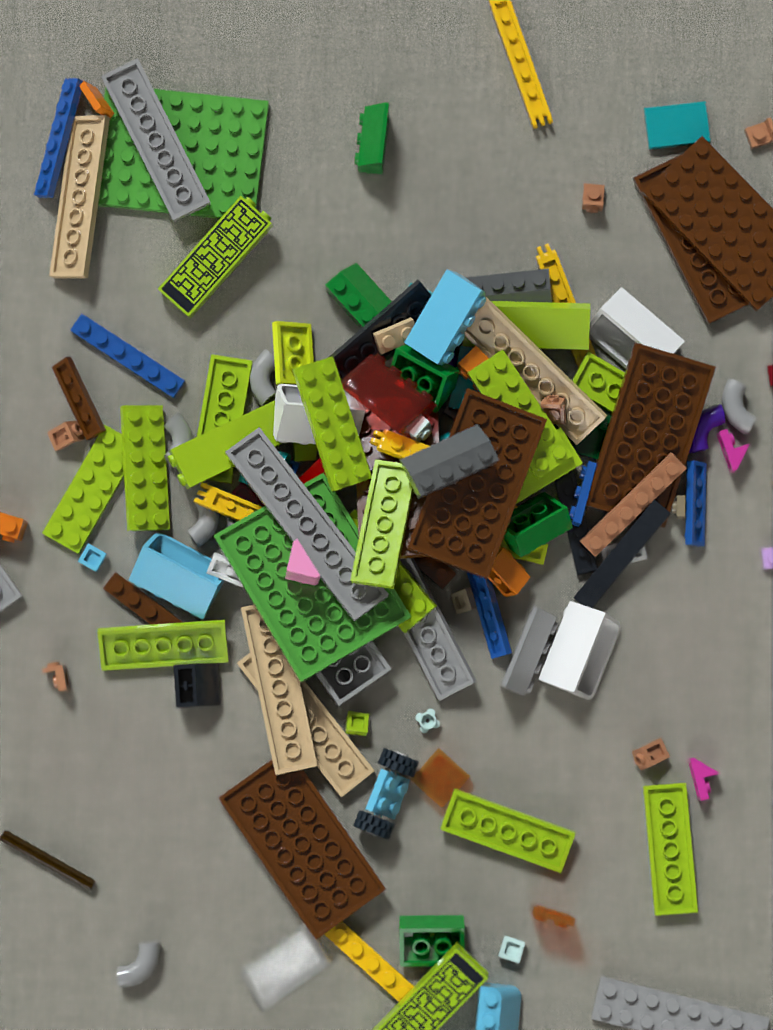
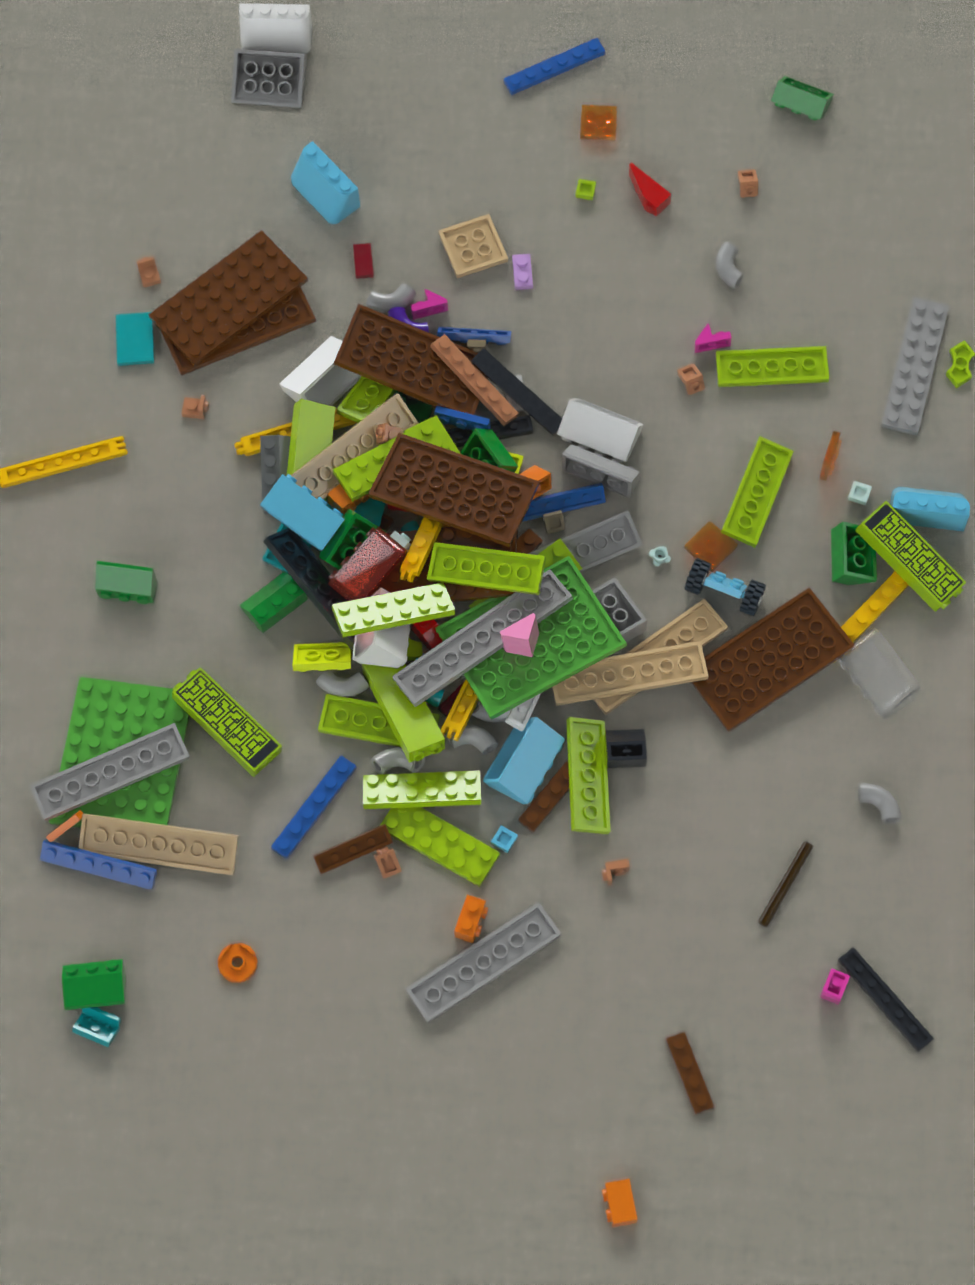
camera: 90 degrees left, 15 degrees down
(357, 723) = (662, 612): lime plate -> none
(393, 336) = (312, 564): tan plate -> none
(449, 461) = (434, 505): dark grey slope -> none

